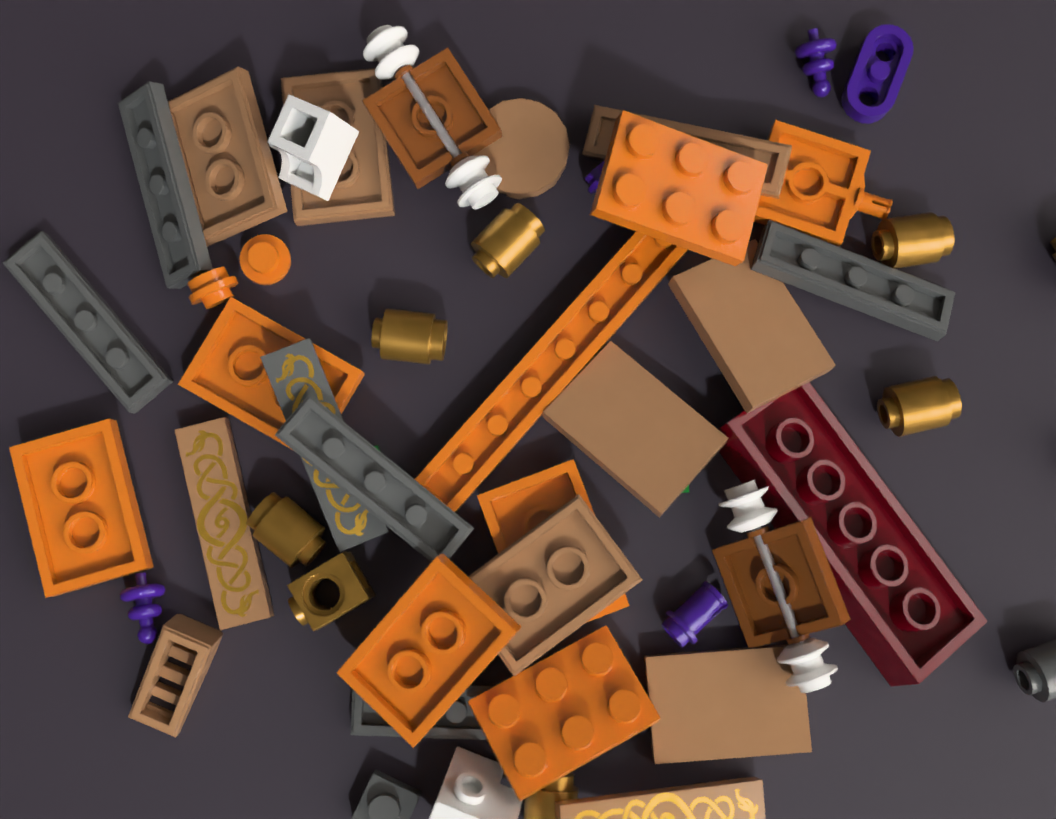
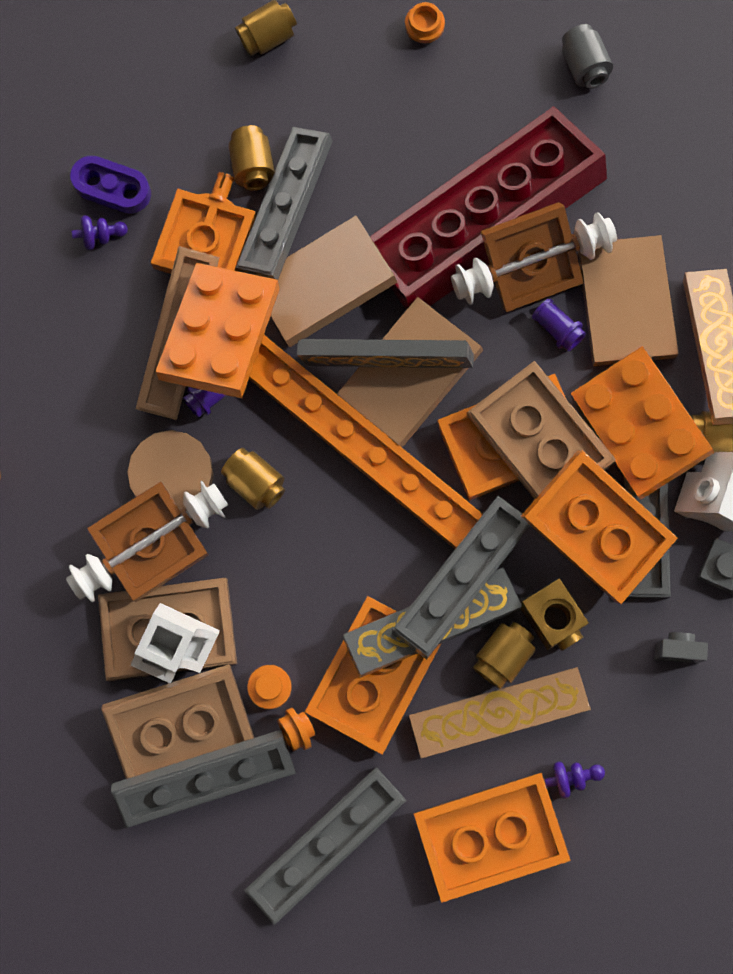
camera: 85 degrees left, 5 degrees down
(187, 642) = (594, 737): medium nougat slope -> none
(283, 744) = (681, 648): none -> dark grey plate
(410, 336) = (336, 557): pearl gold brick -> none
(653, 396) = (386, 353): none -> dark grey tile
(919, 405) = (386, 154): pearl gold brick -> none

